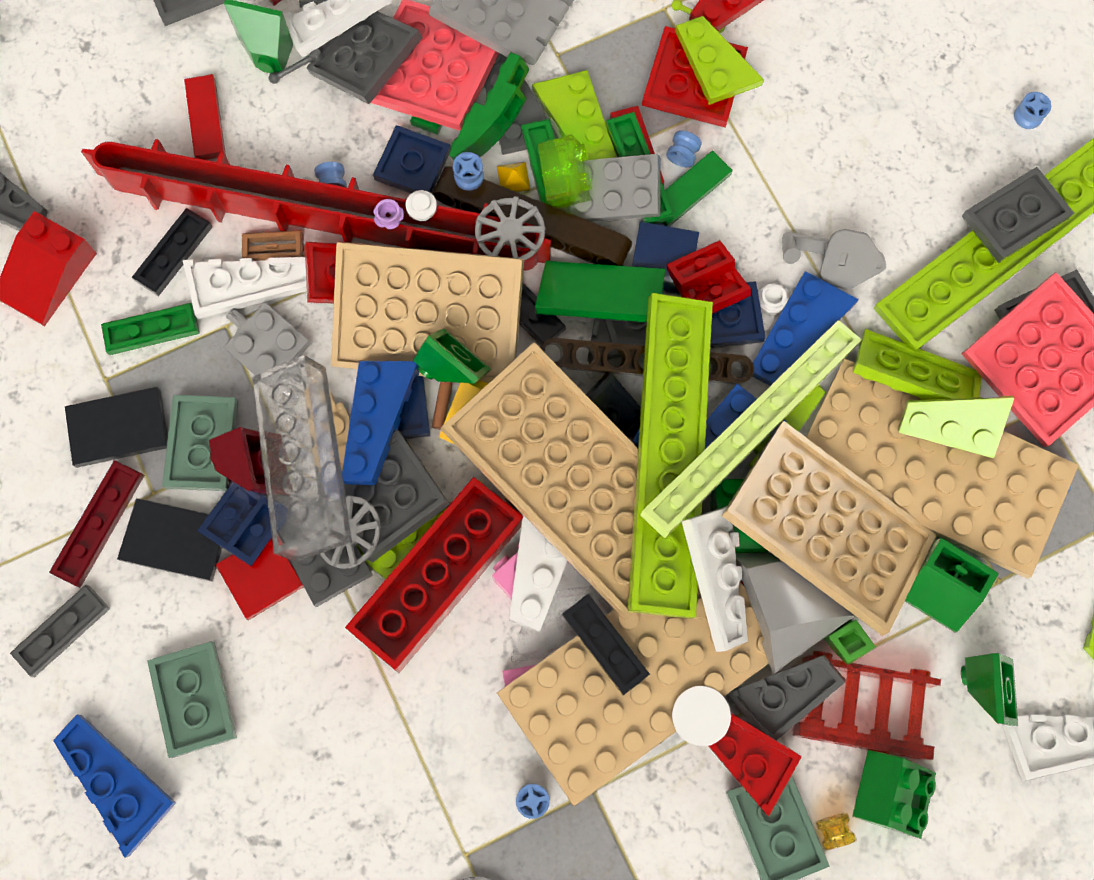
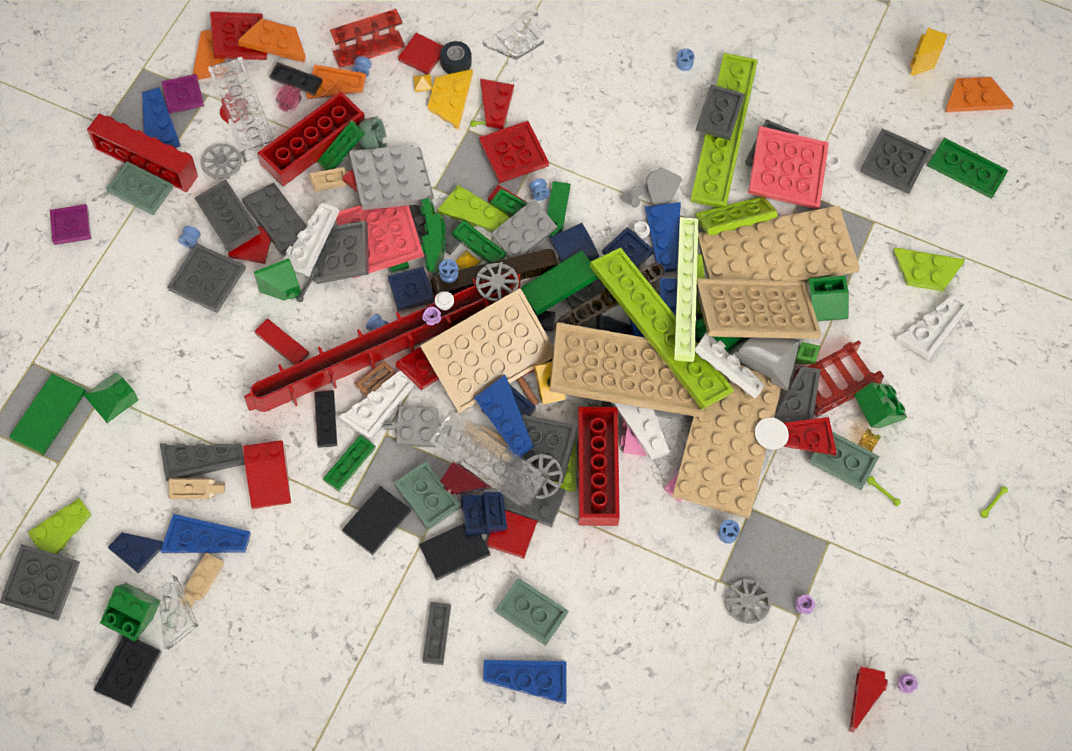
camera: 40 degrees left, 10 degrees down
(96, 524) = (408, 572): dark red tile -> none
(449, 360) = (521, 363): green slope -> none
(565, 171) = (495, 238): clear neon green brick -> none
(605, 644) = (703, 433): black tile -> none
(709, 277) = (604, 239): red slope -> none
(715, 62) = (519, 137): lime wing -> none
(958, 423) = (775, 222): wing -> none
(992, 684) = (881, 326): green slope -> none

